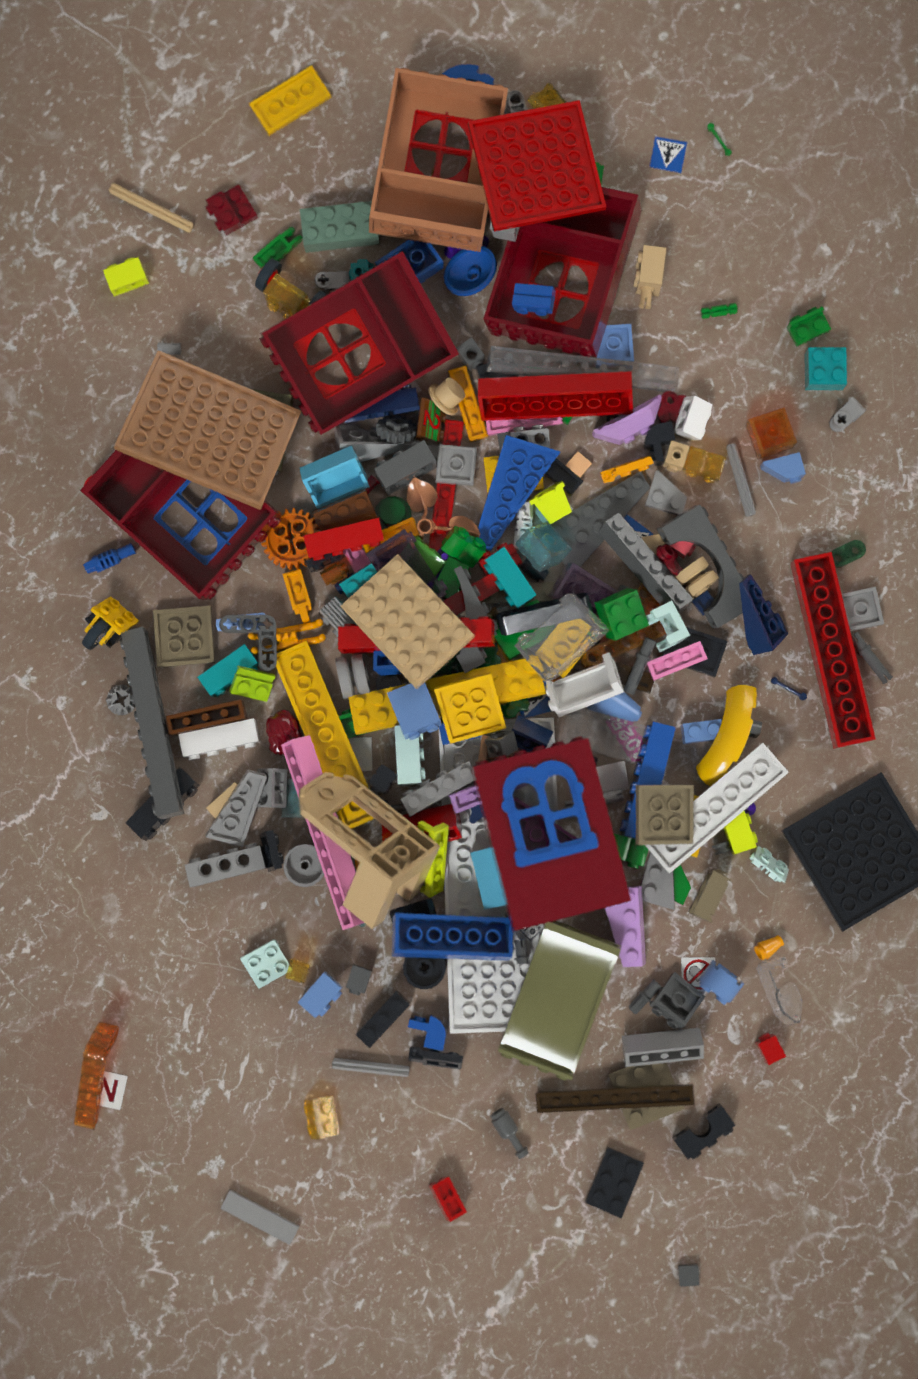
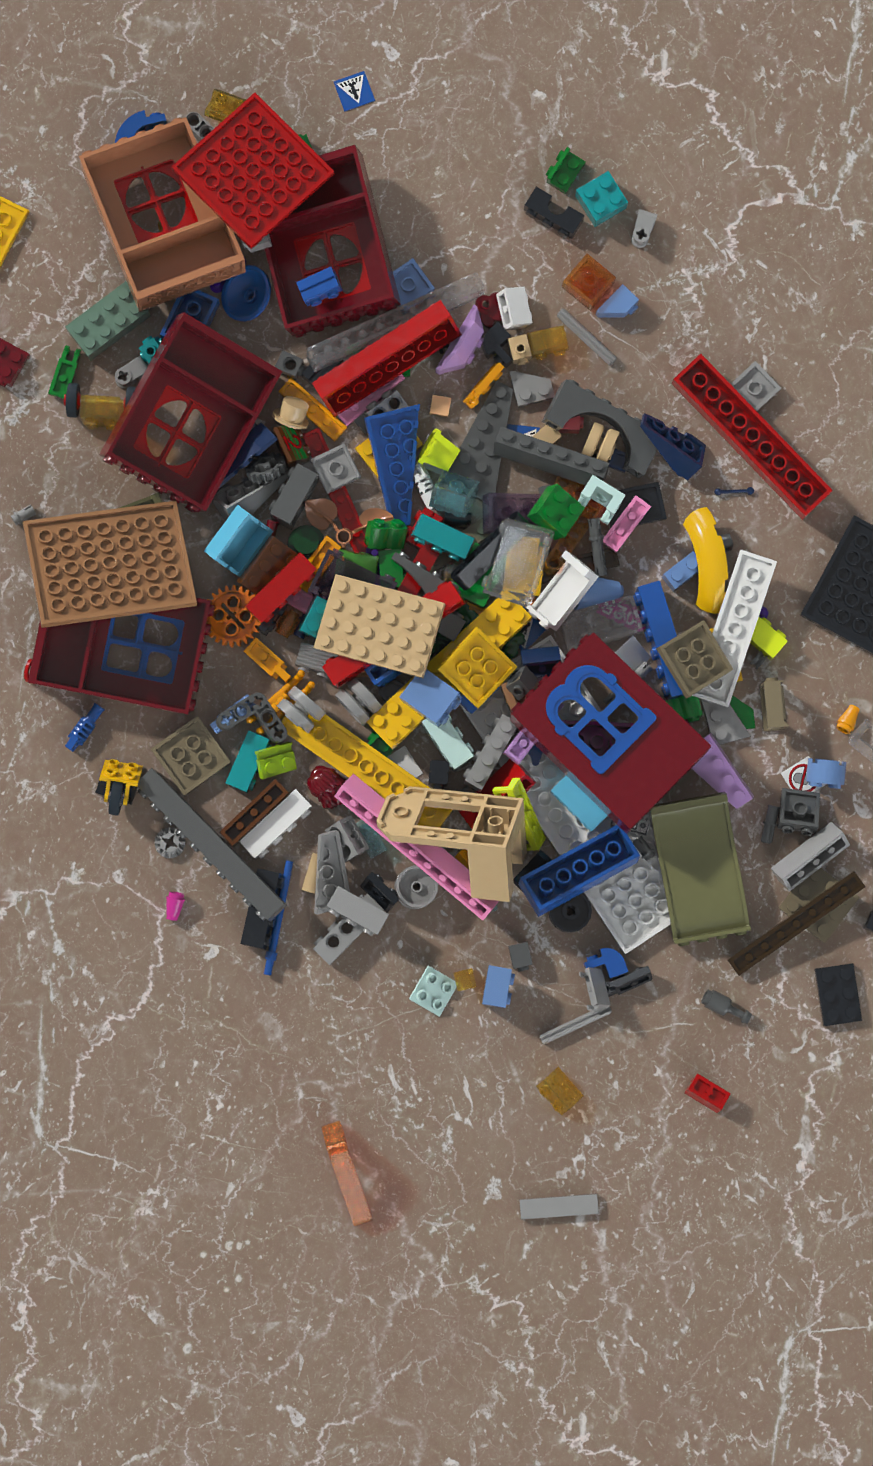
camera: 40 degrees left, 0 degrees up
(92, 755) = (174, 904): none -> dark pink cone
(113, 1090) = (369, 1178): white sticker -> none
(147, 848) = (271, 954): none -> blue bar
(240, 856) = (357, 911): none -> light grey brick
(298, 653) = (301, 709): none -> light grey wheel
(383, 1019) = (561, 976): black brick -> none
(406, 1048) = (596, 989): none -> light grey hinge
(559, 472) = (429, 422): black tile -> none
(650, 273) = (402, 205): tan brick -> none
(669, 556) = (565, 438): dark red plate -> none
(710, 127) = (376, 45): green hinge -> none
(719, 310) = (480, 201): green axle -> none
(777, 868) = (816, 649): light aqua hinge -> none
(781, 371) = (564, 223): none -> black arch
(846, 554) = (714, 347): clear green plate -> none
(865, 651) = (788, 424): dark grey pin -> none

